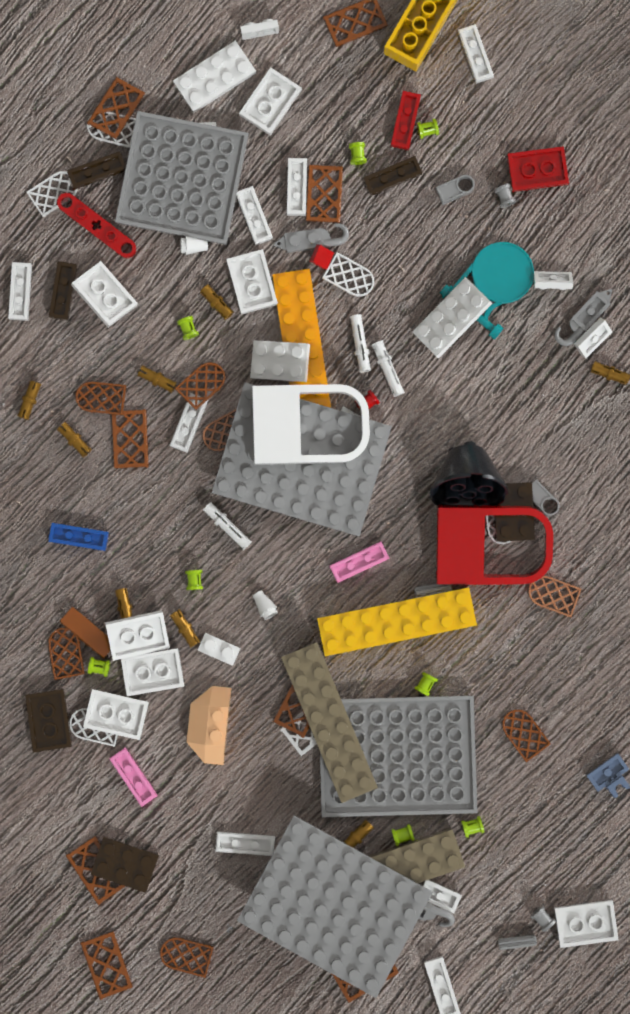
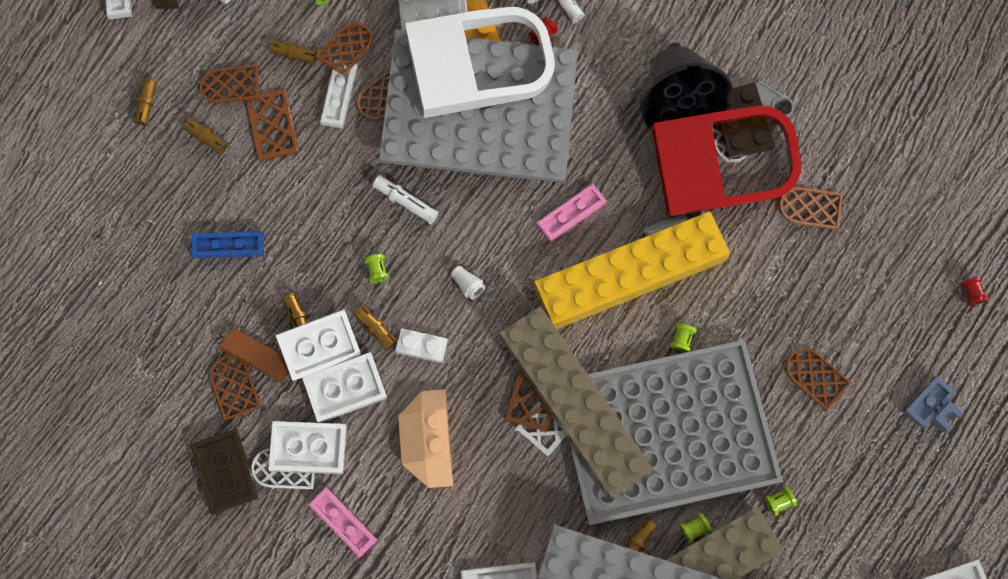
camera: 10 degrees left, 10 degrees down
(93, 669) = (277, 393): lime bush -> none

